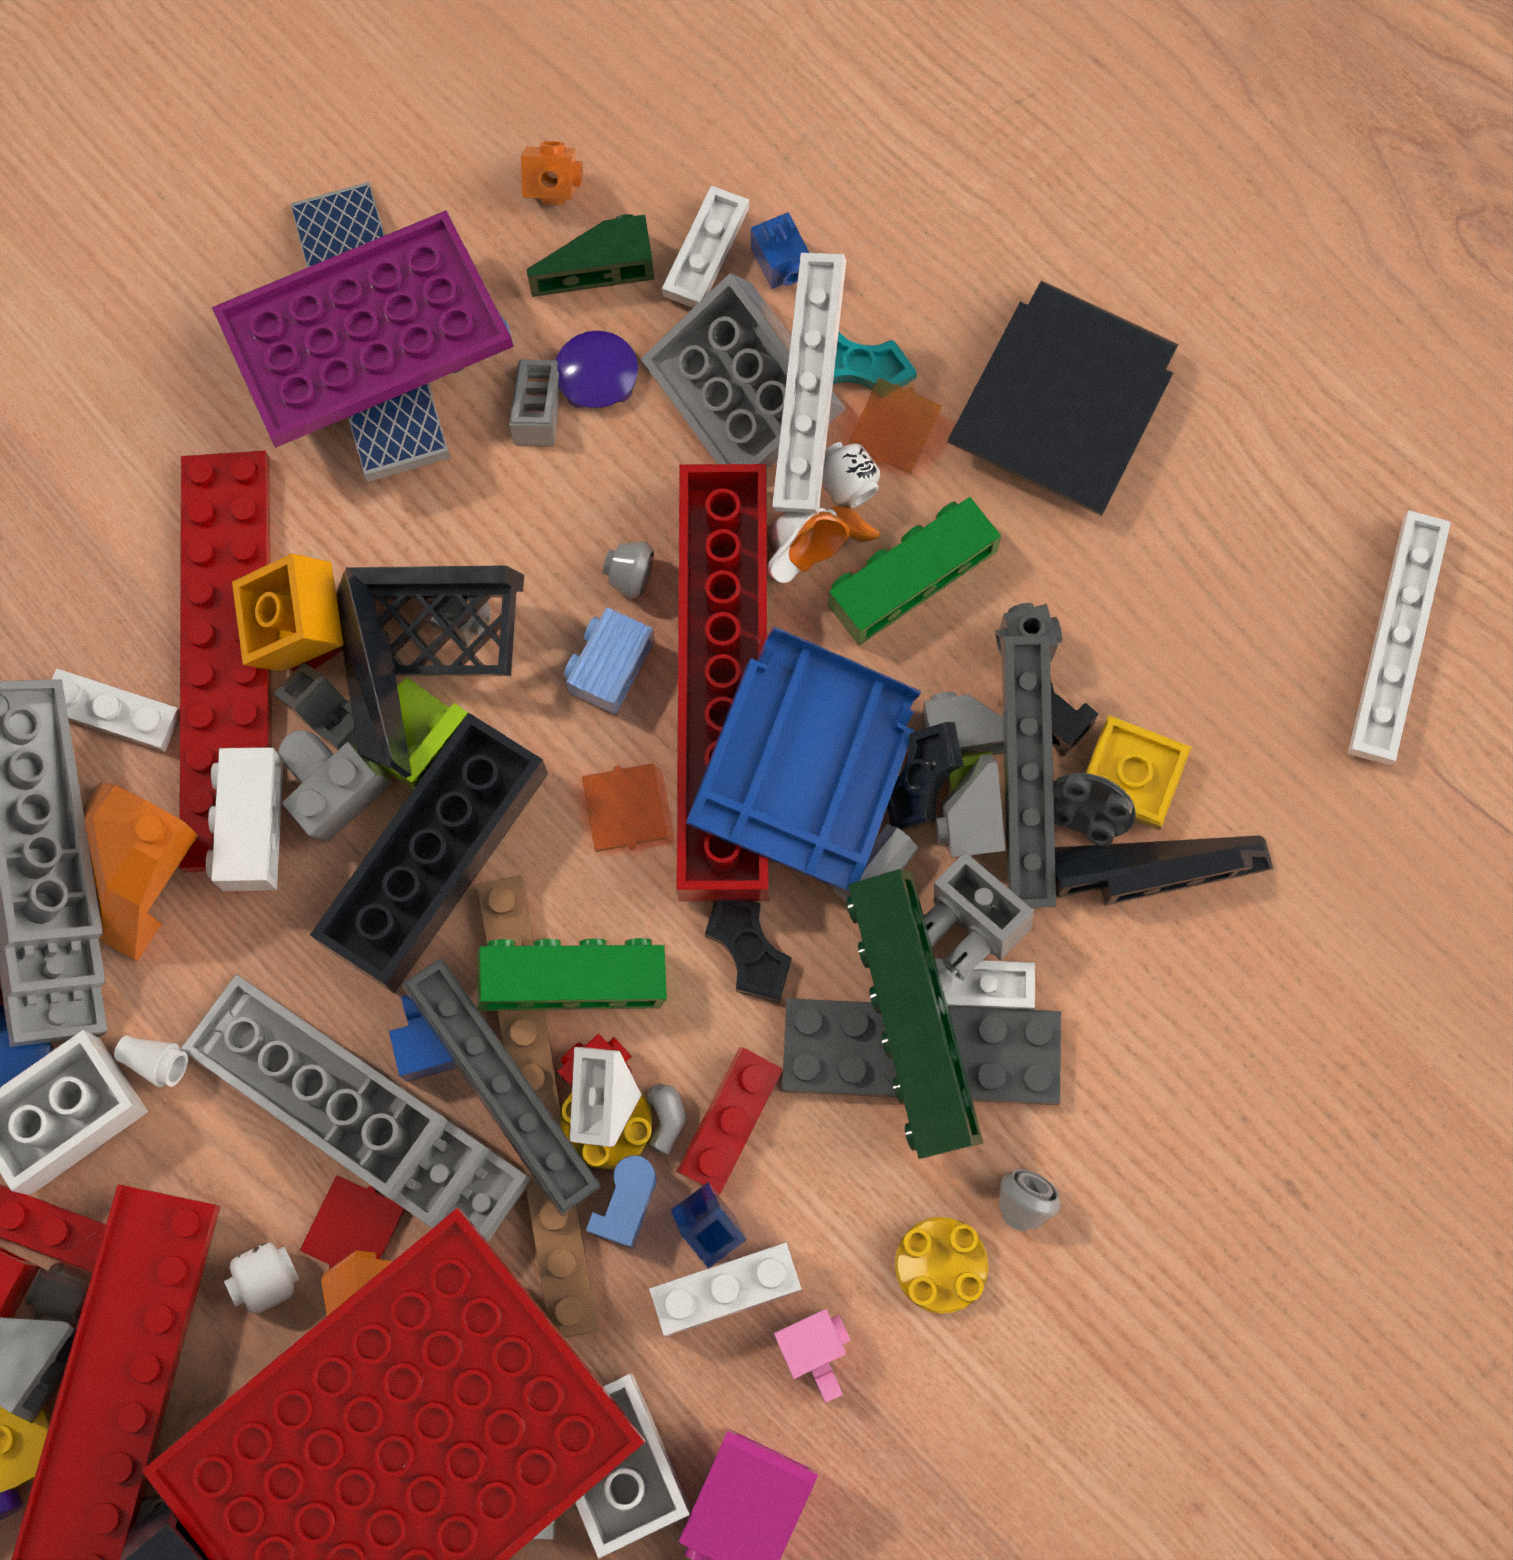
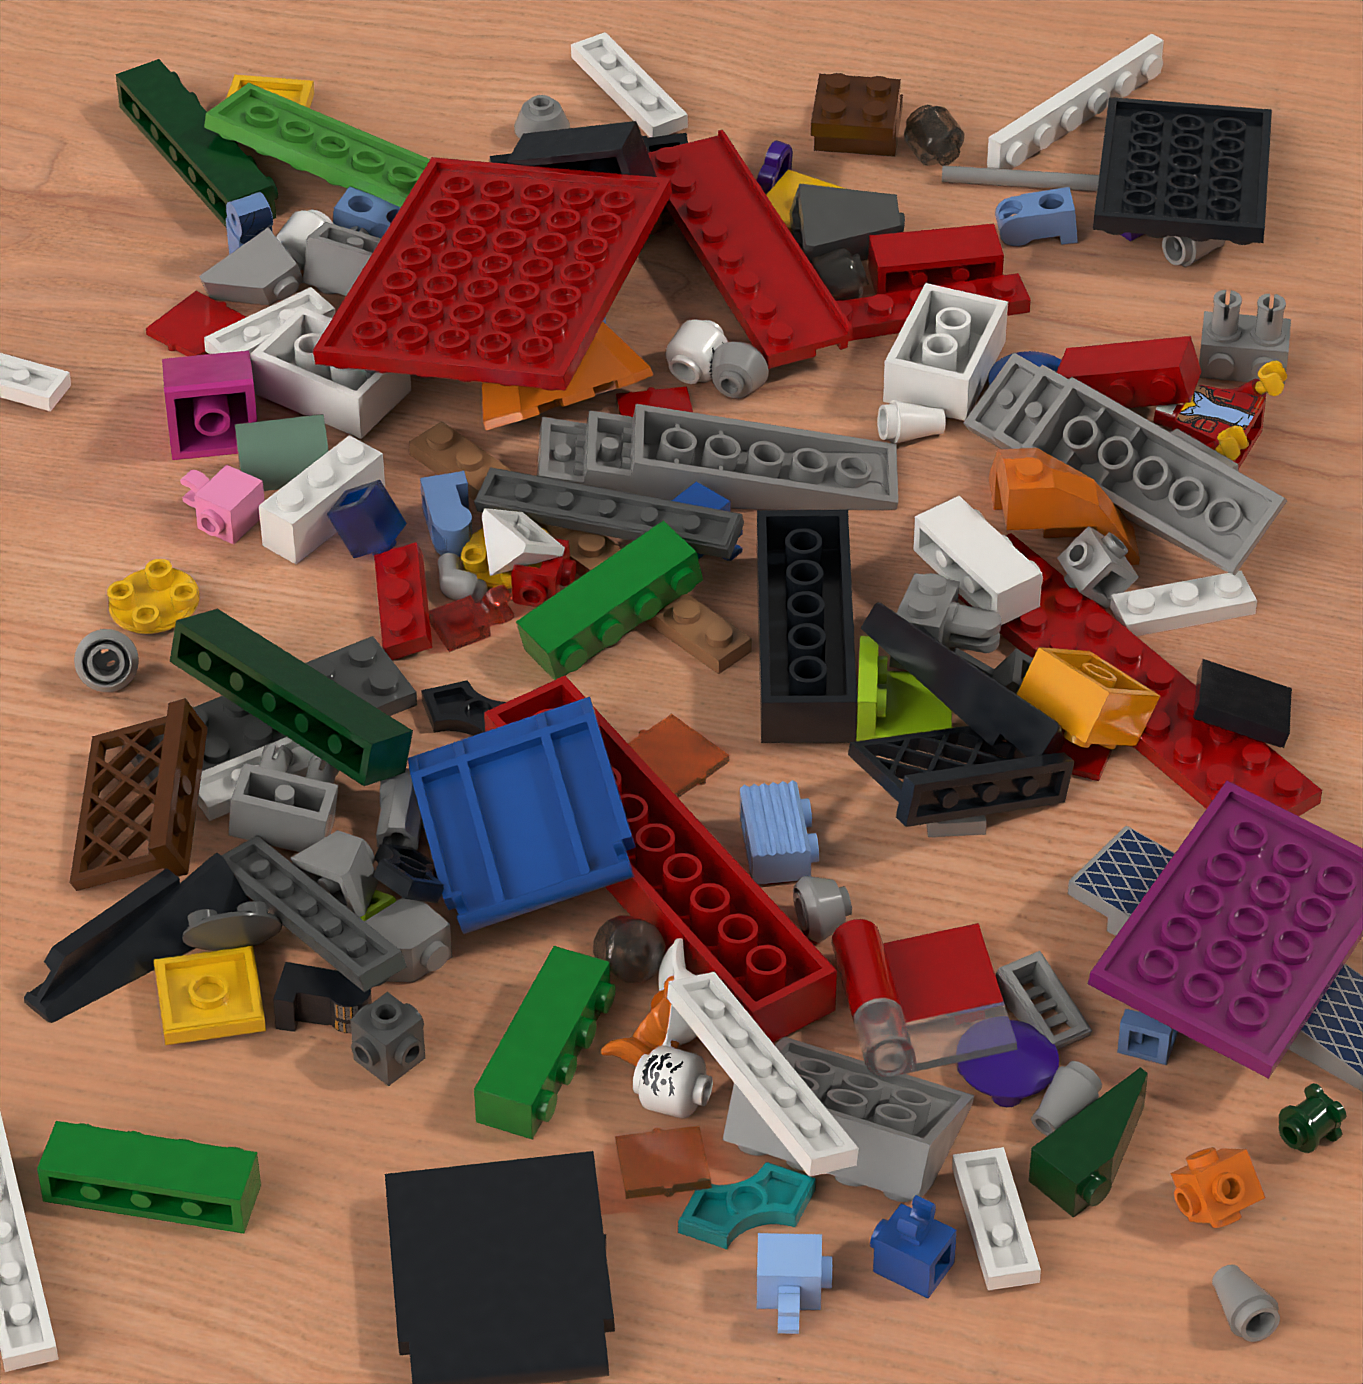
camera: 145 degrees right, 30 degrees down
(151, 769) = (1090, 561): none -> light grey brick
(167, 560) = (1243, 703): none -> black tile
(248, 1221) = (738, 369): none -> light grey cone
(443, 192) = (1311, 1120): none -> dark green brick
(584, 308) = (1067, 1095): none -> light grey cone
(599, 95) = (1247, 1306): none -> light grey cone
(618, 444) = (921, 997): none -> door
(693, 1065) = (467, 621): none -> clear red plate
(724, 1380) = (280, 448): none -> sand green brick
(800, 606) = (631, 947): none -> clear smoke head
(876, 280) = (791, 1276): none -> light blue brick
(1054, 988) = (172, 793): none -> reddish brown fence
(1268, 621) = (149, 1176): none -> green brick

